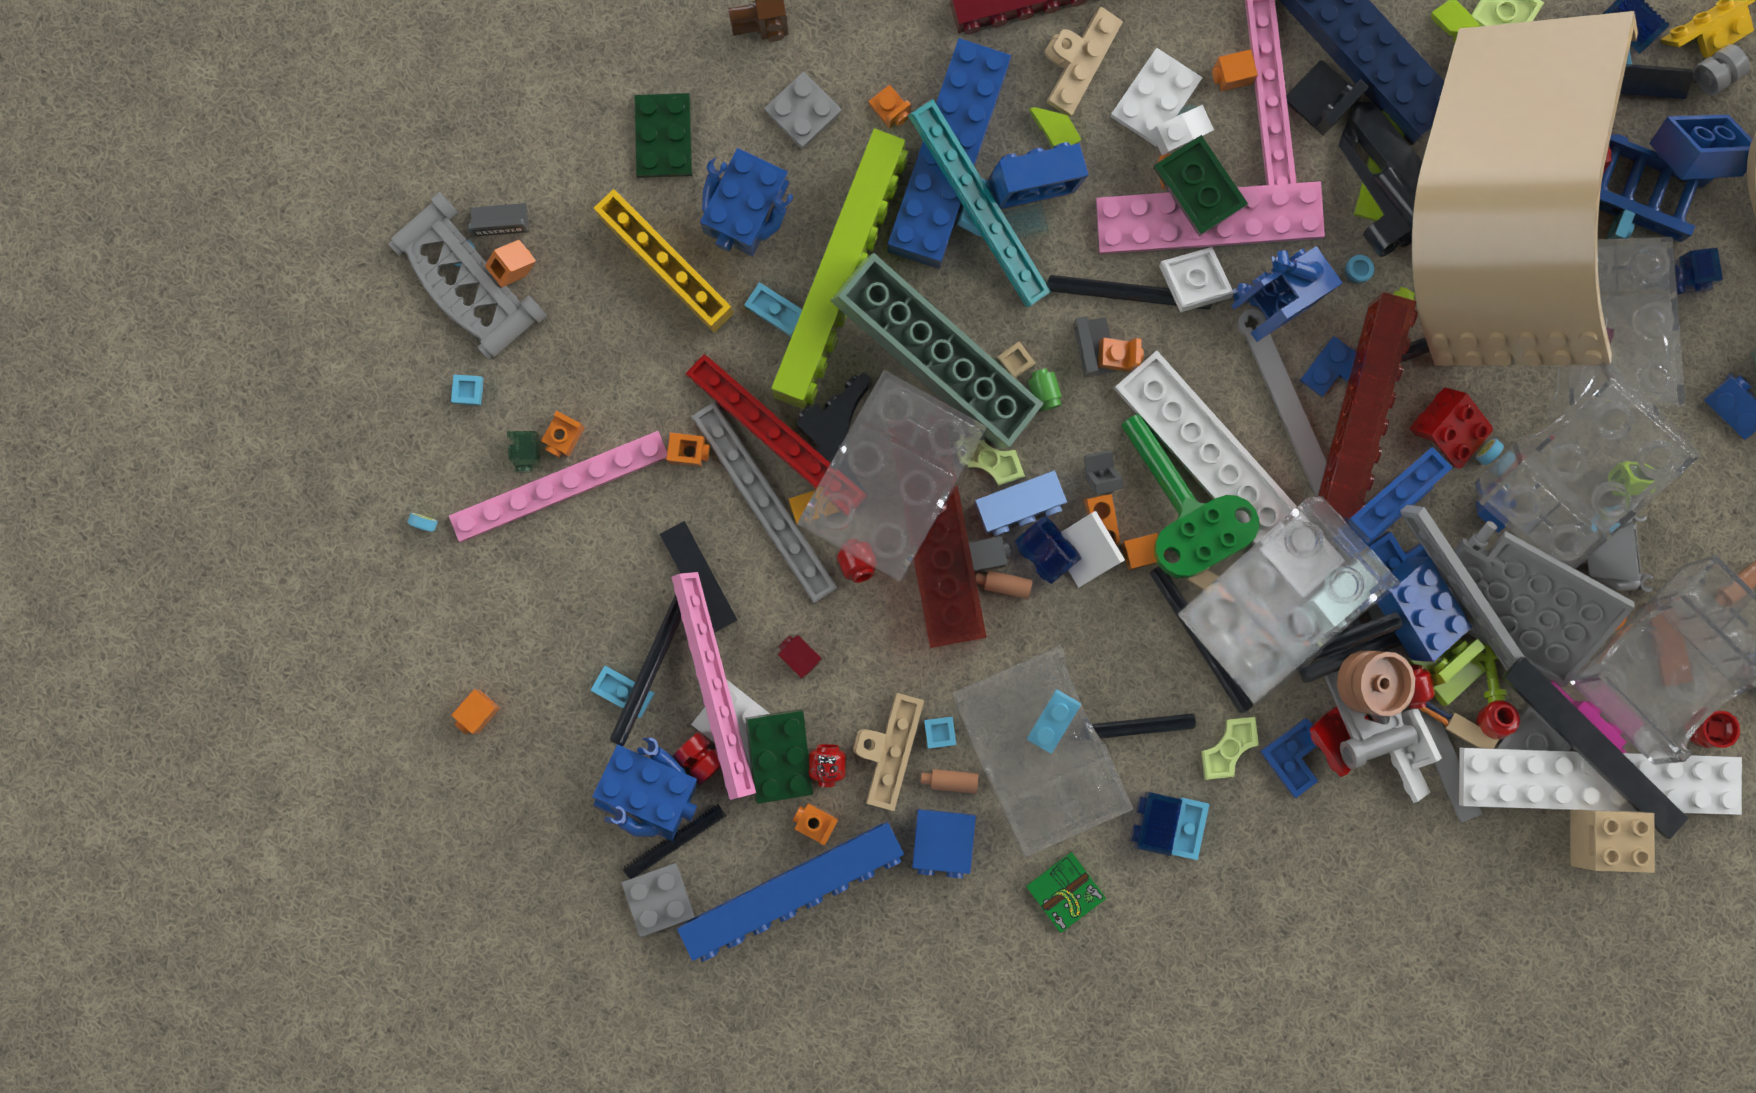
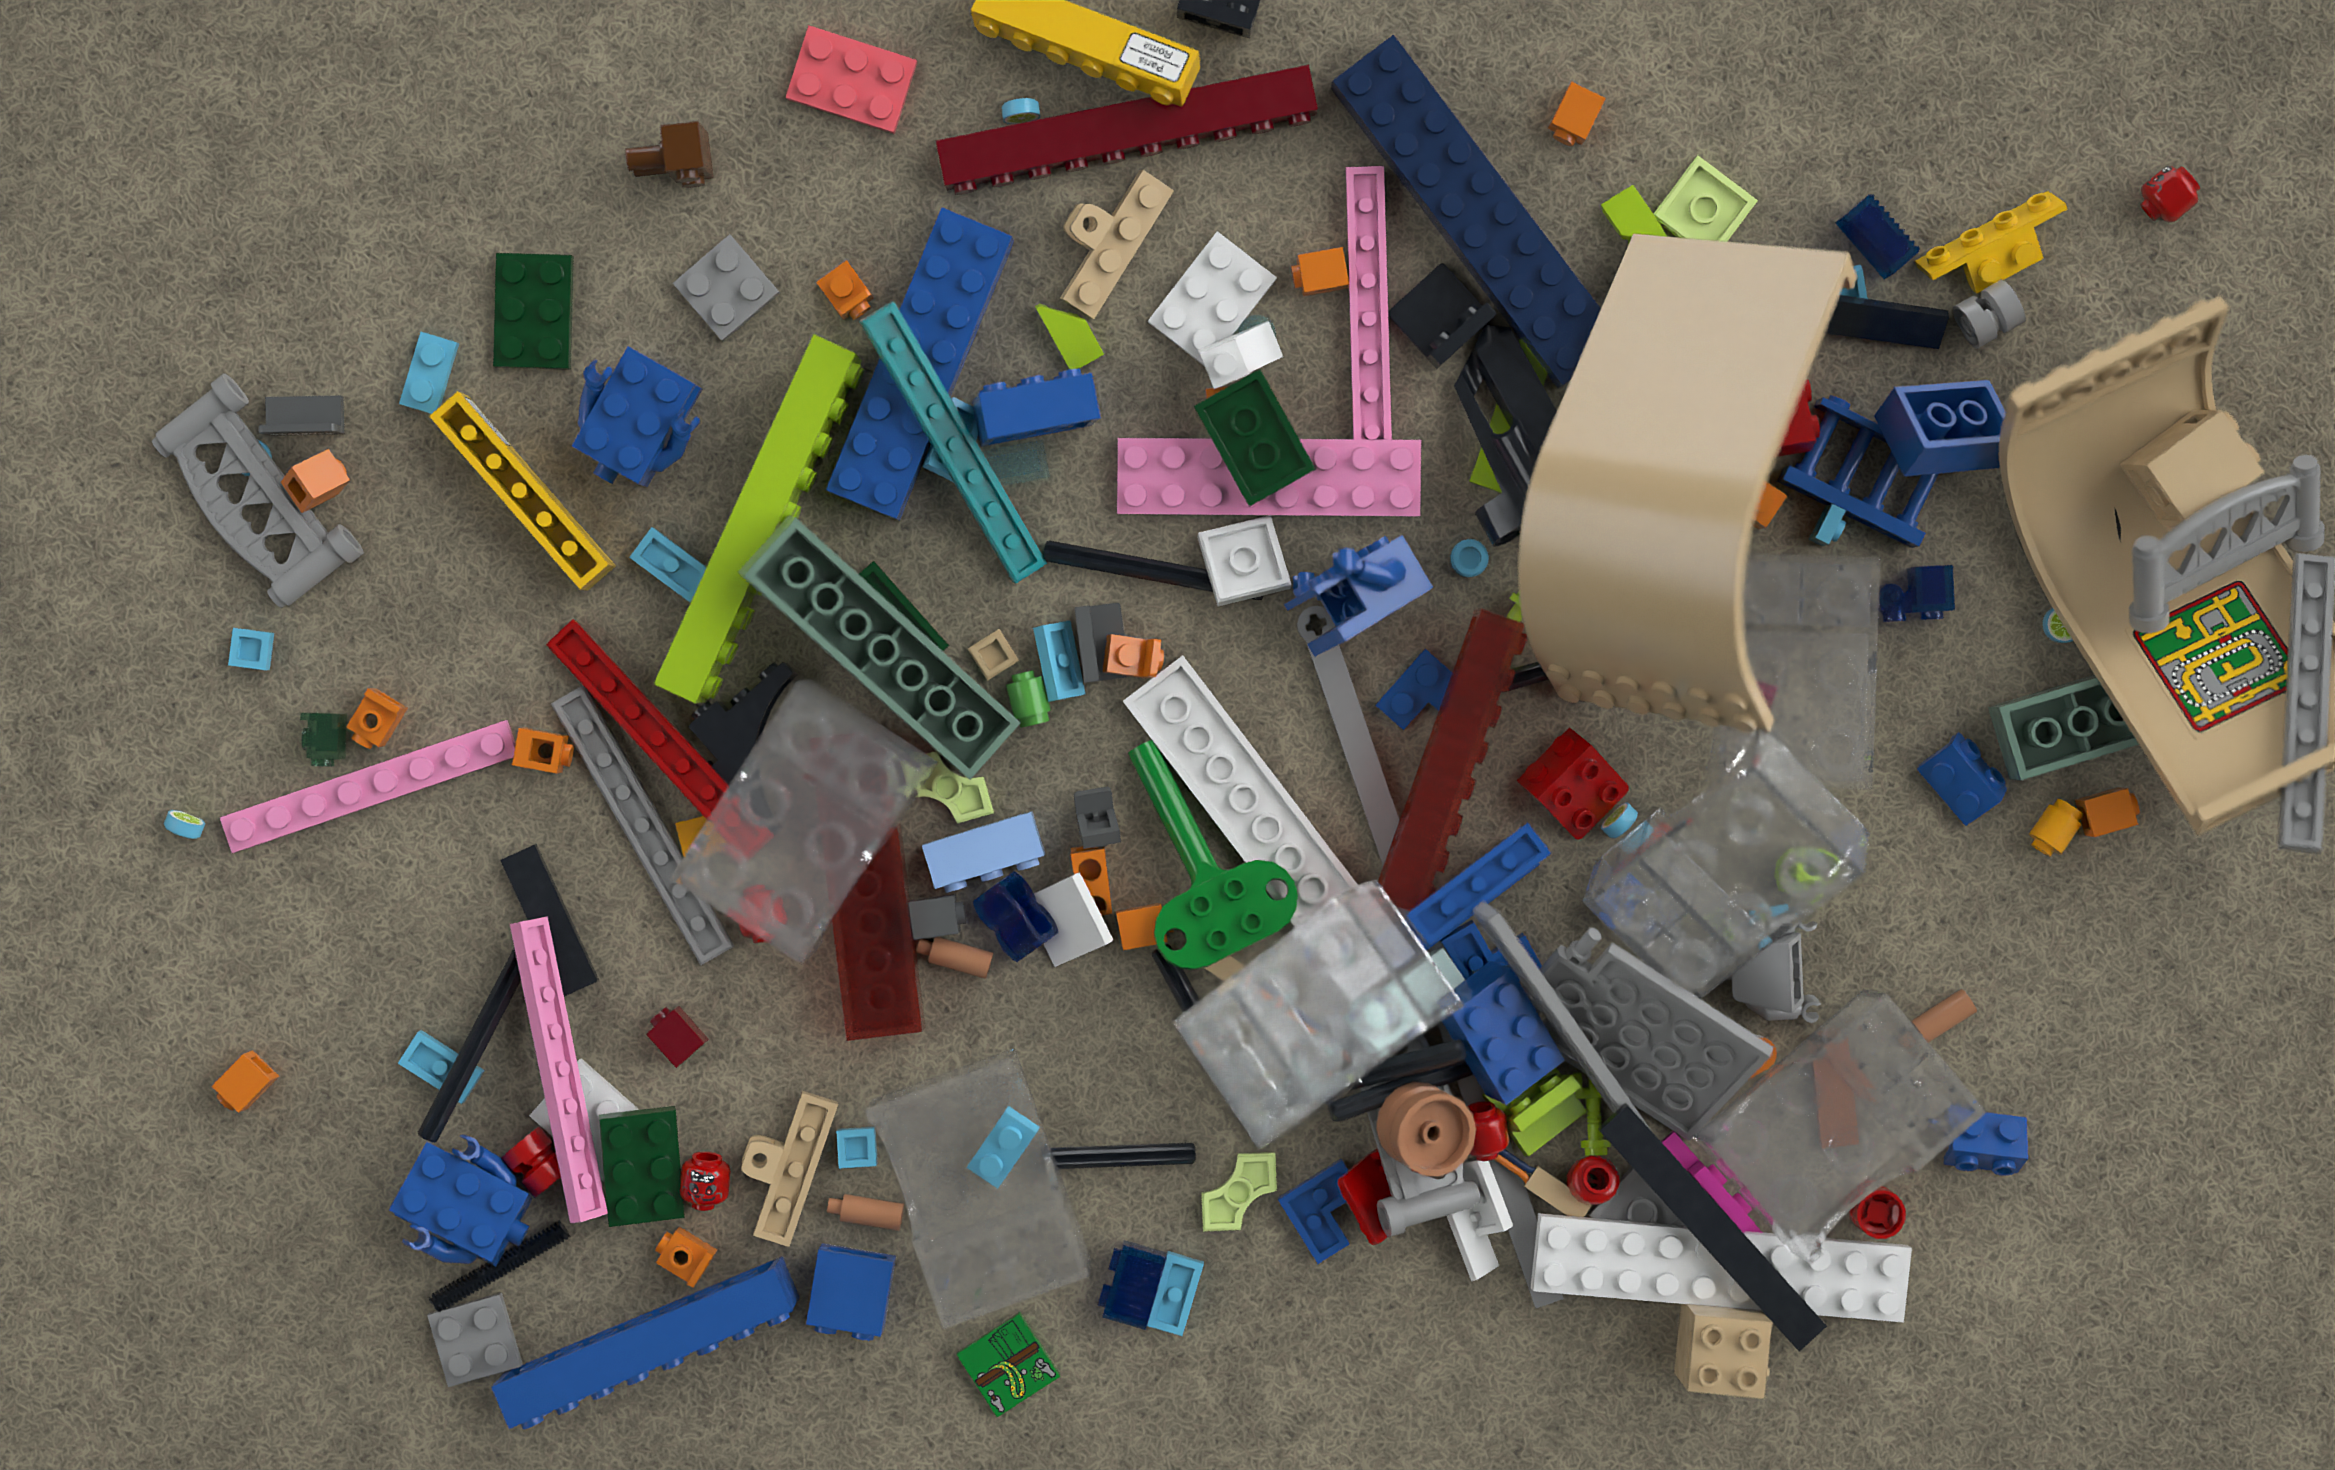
camera: 10 degrees right, 5 degrees up
(589, 183) = (429, 373): none -> medium azure plate
(1065, 360) = (1059, 660): none -> medium azure plate

